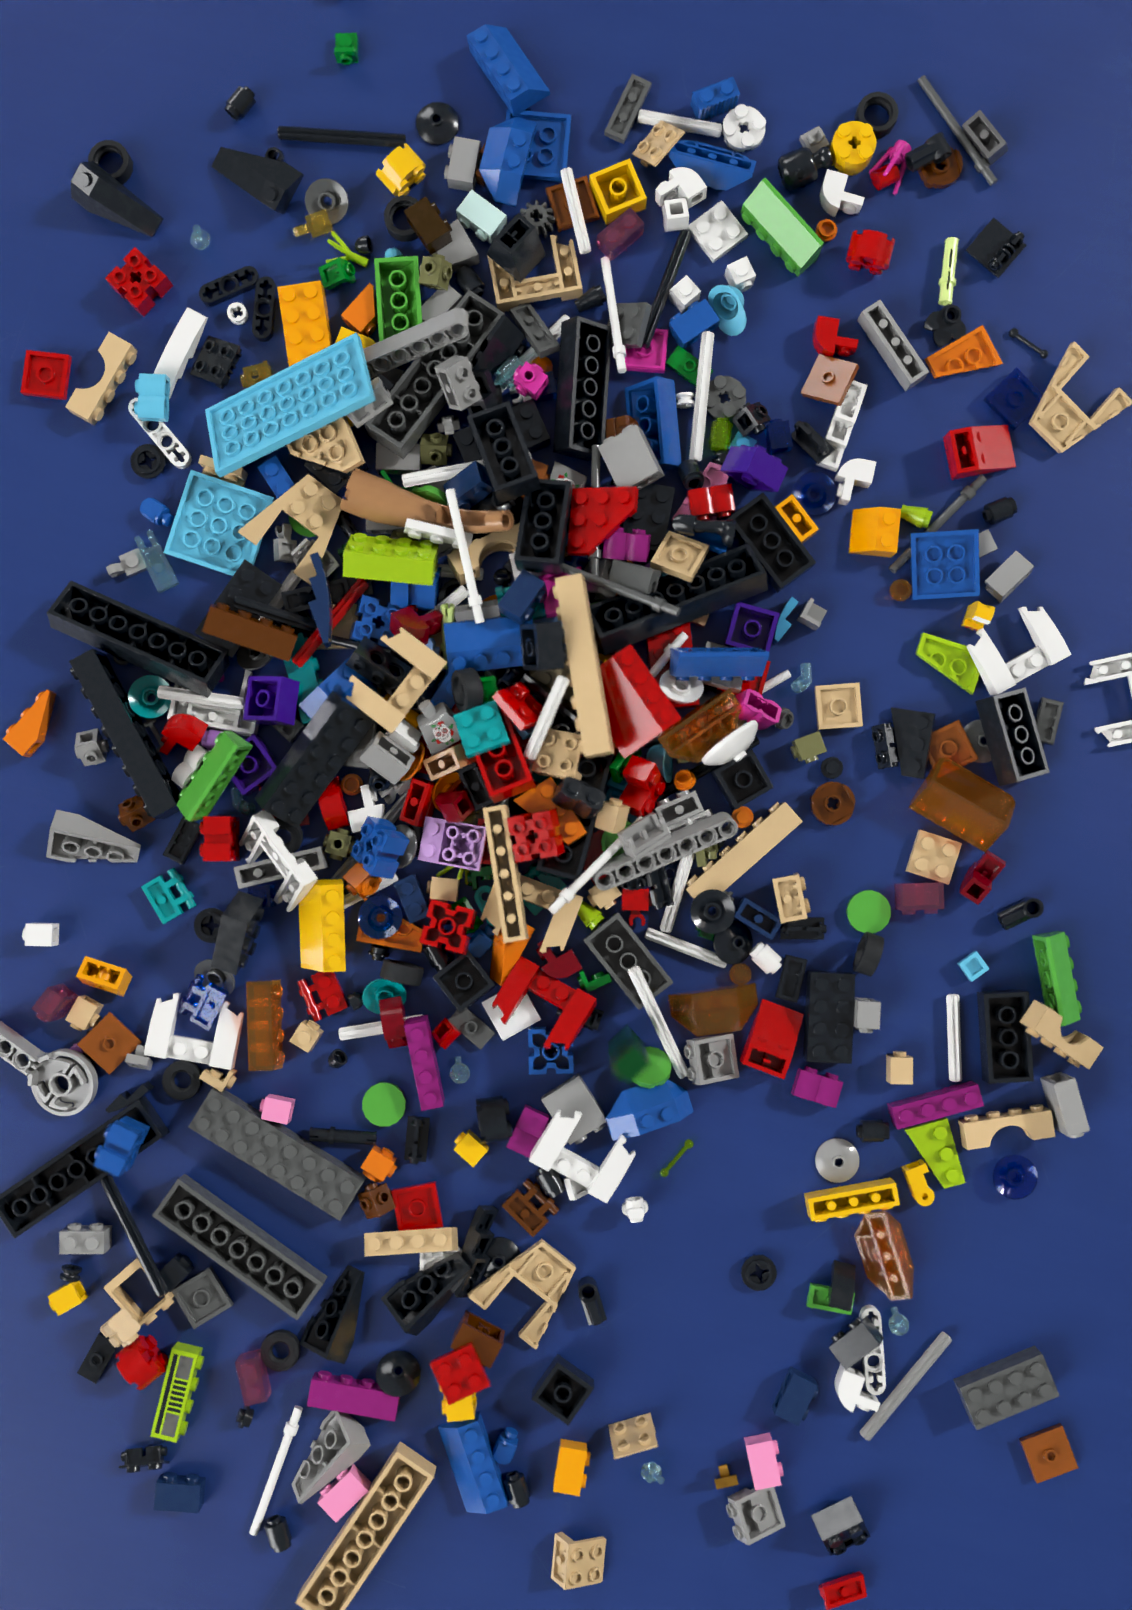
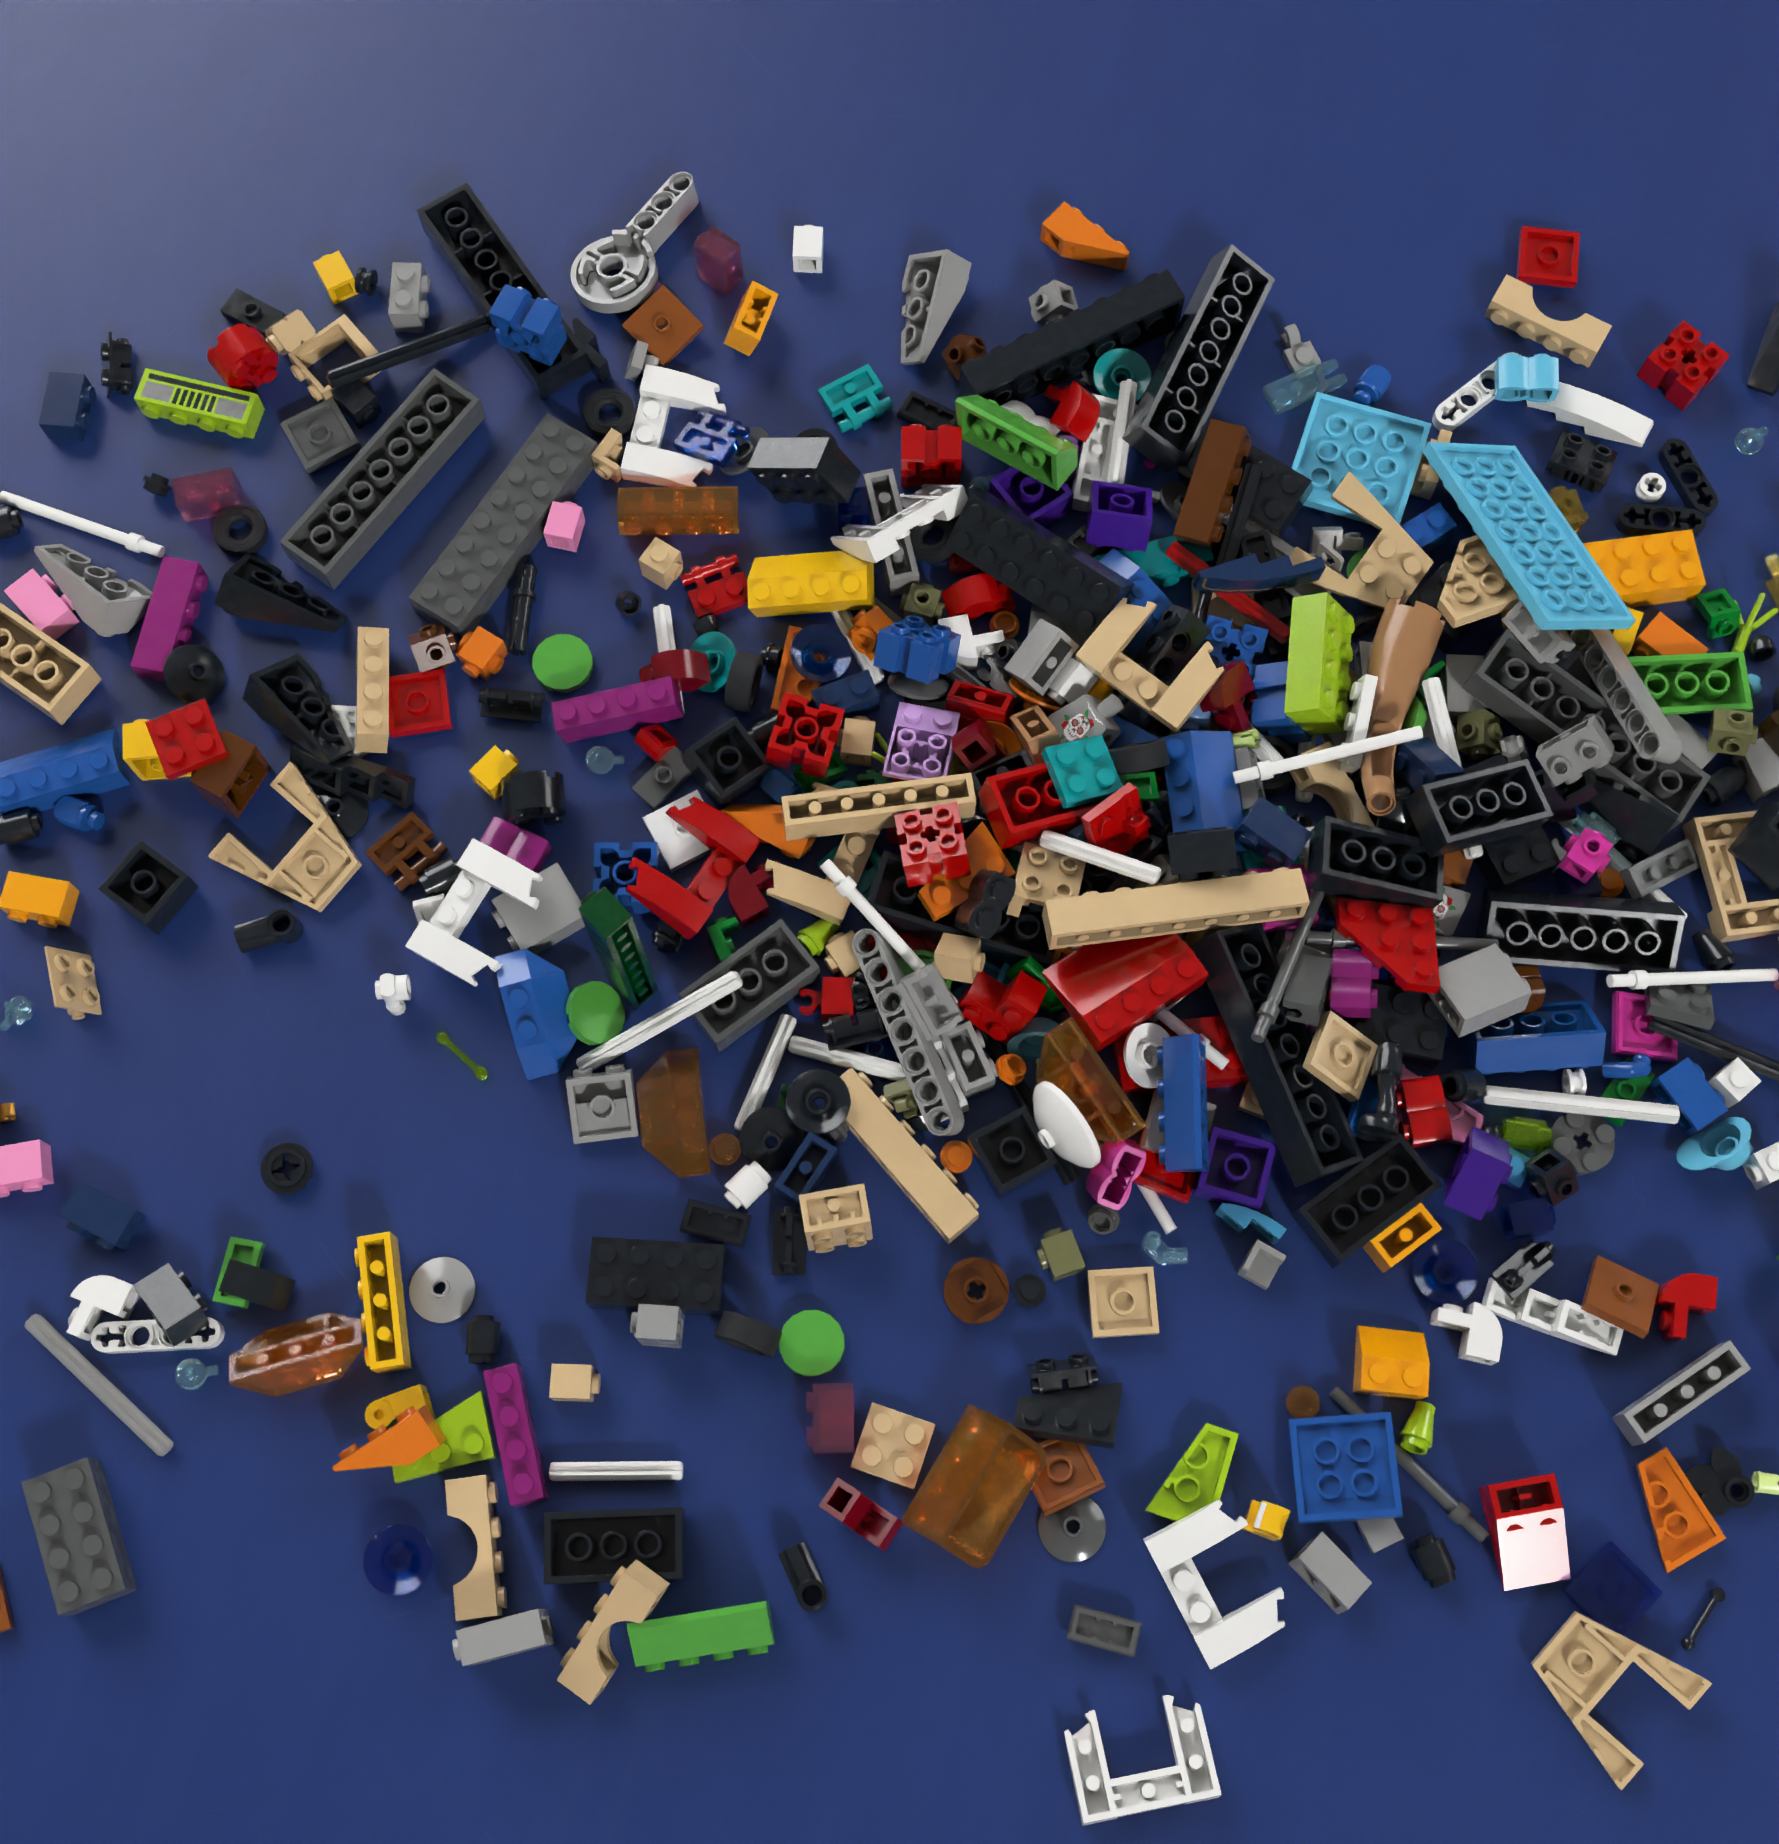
camera: 85 degrees right, 15 degrees down
(84, 1013) = (704, 297): tan brick -> none
(139, 458) = (1442, 367): black gear -> none
(677, 366) = (1637, 1068): none -> blue arm
(772, 1039) = (627, 1191): red slope -> none
(817, 1087) = (553, 1257): magenta brick -> none
(947, 1181) = (399, 1445): none -> orange slope
(973, 966) = (724, 1502): medium azure plate -> none
(1012, 736) = (1079, 1566): black brick -> none

